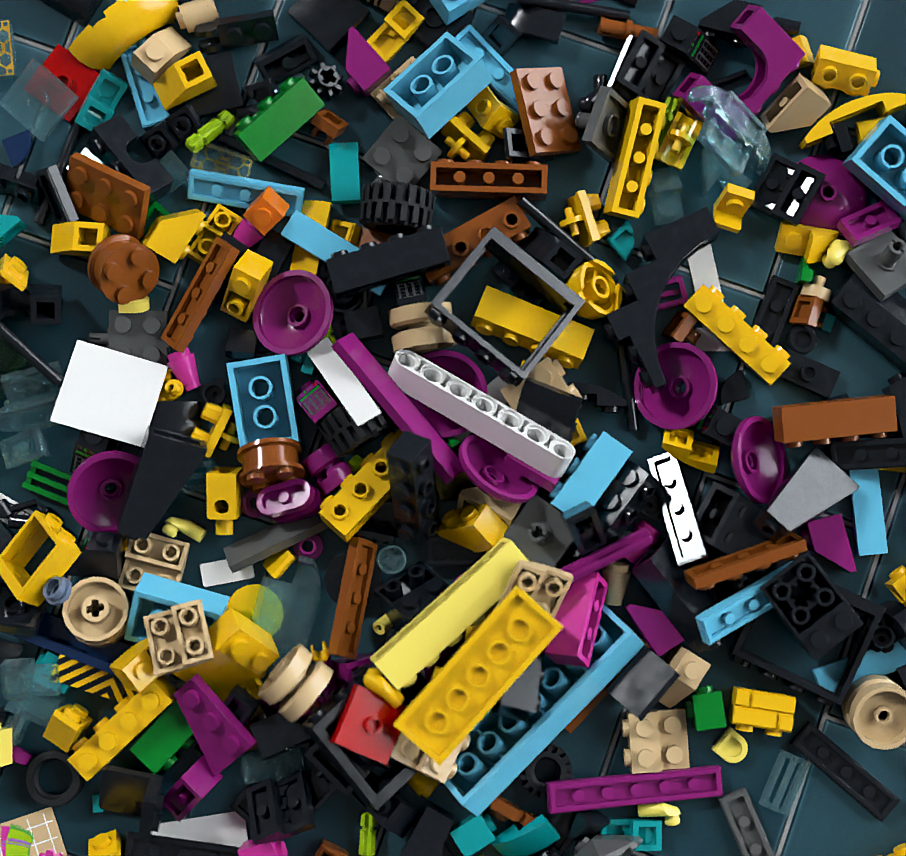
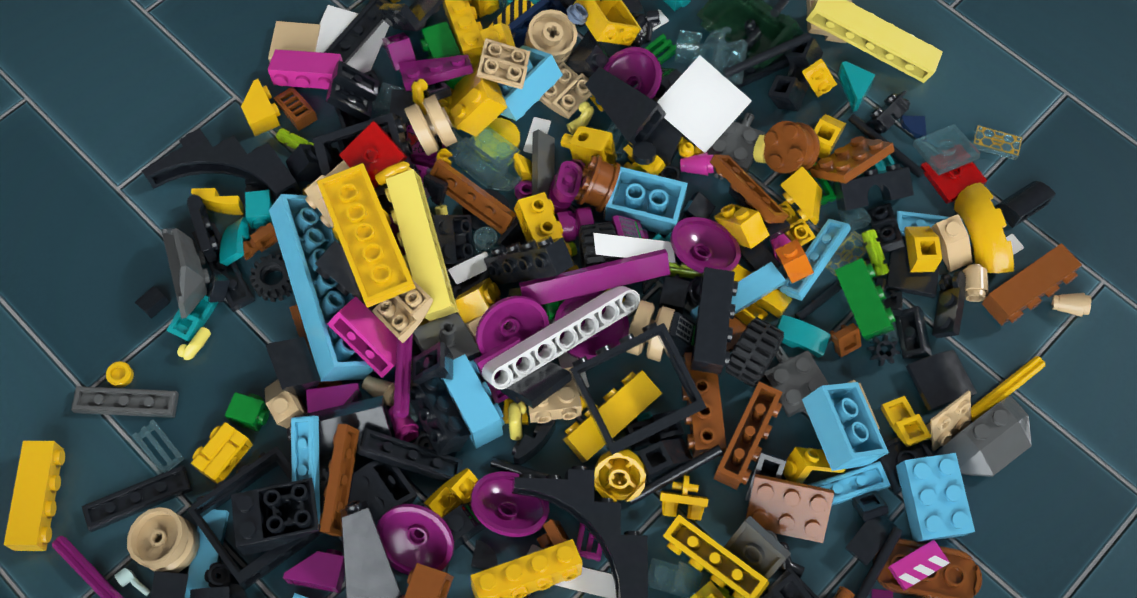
camera: 115 degrees right, 20 degrees down
(57, 194) = (866, 130): black tile -> none
(101, 100) = (930, 191): teal slope -> none
(209, 428) = (644, 153): none -> black tile
(260, 720) = (417, 93): none -> yellow arm
(361, 642) = (436, 188): none -> black tile
(363, 65) = (886, 384): magenta slope -> none
(435, 559) = (468, 268): none -> white sticker
(465, 141) = (781, 443): yellow hips -> none
(586, 424) = (514, 415): none -> light yellow arm
(622, 241) = (650, 525): teal tile -> none
(633, 789) = (221, 332): magenta tile -> none
(656, 741) = (245, 366): tan plate -> none
(731, 746) = (208, 419): light yellow tile -> none

